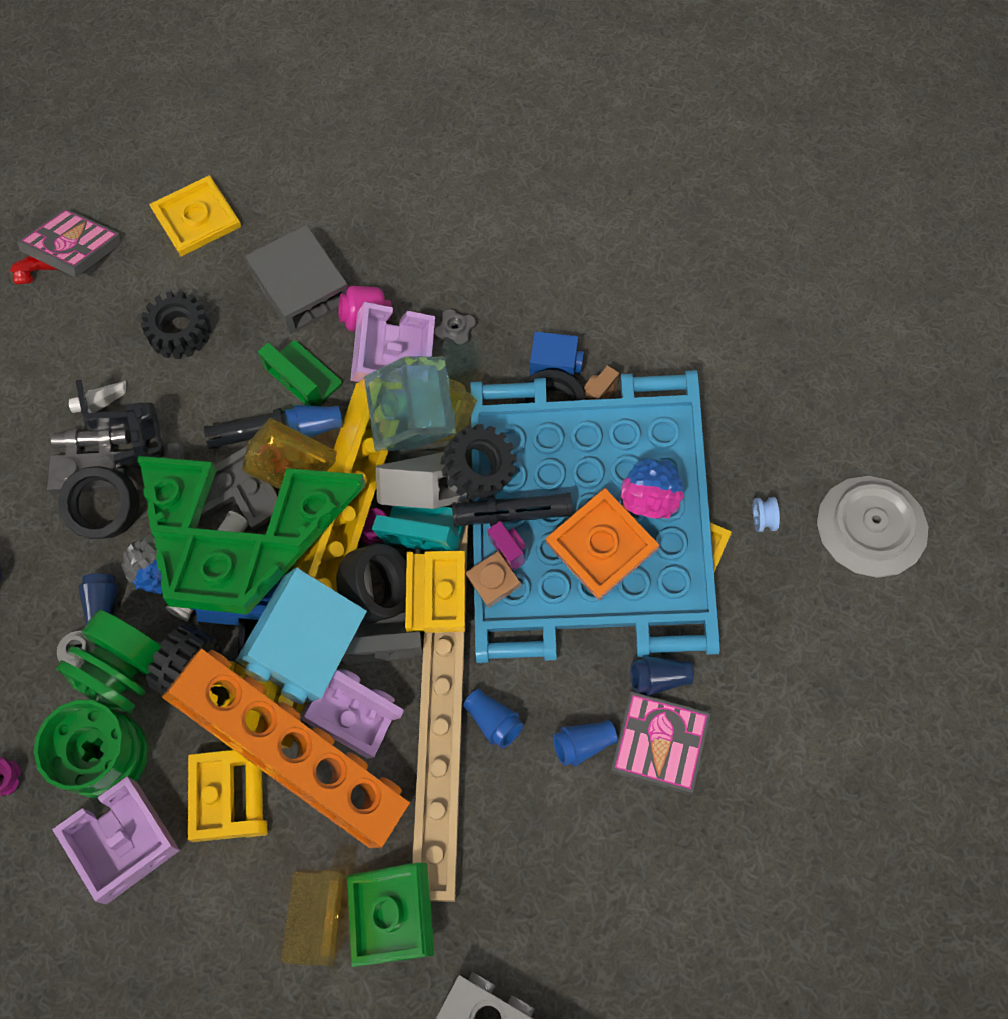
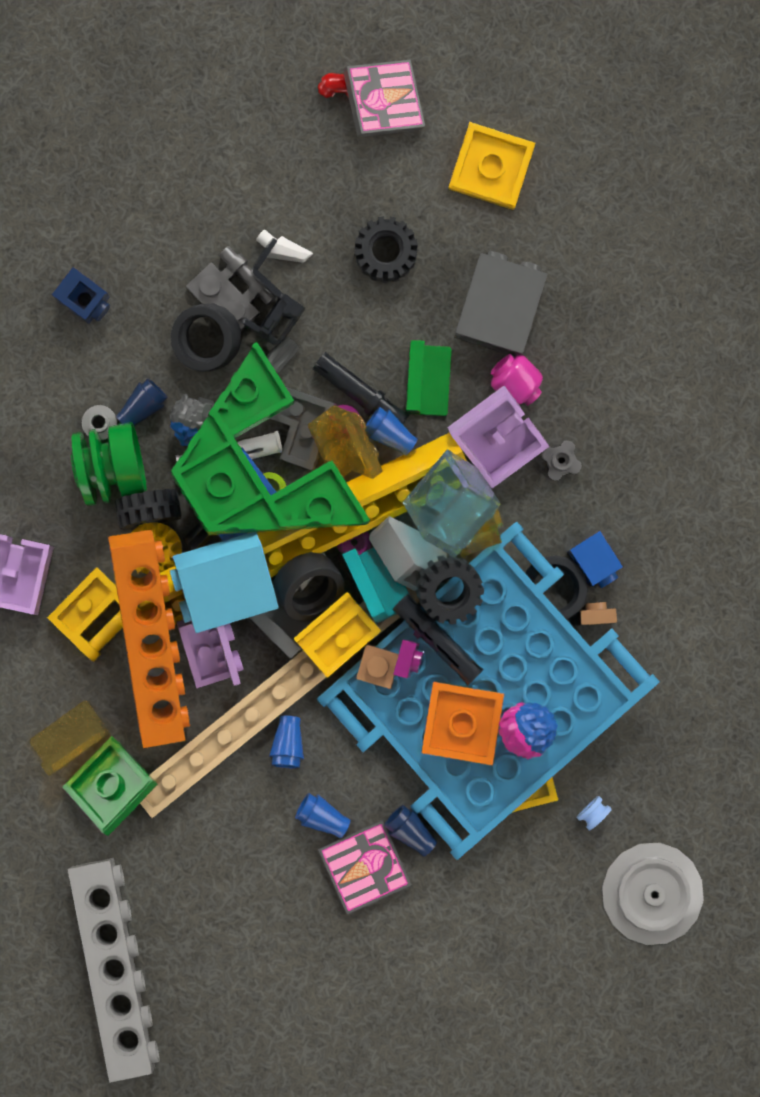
camera: 40 degrees right, 20 degrees up
(69, 743) = (31, 492): green wheel -> none

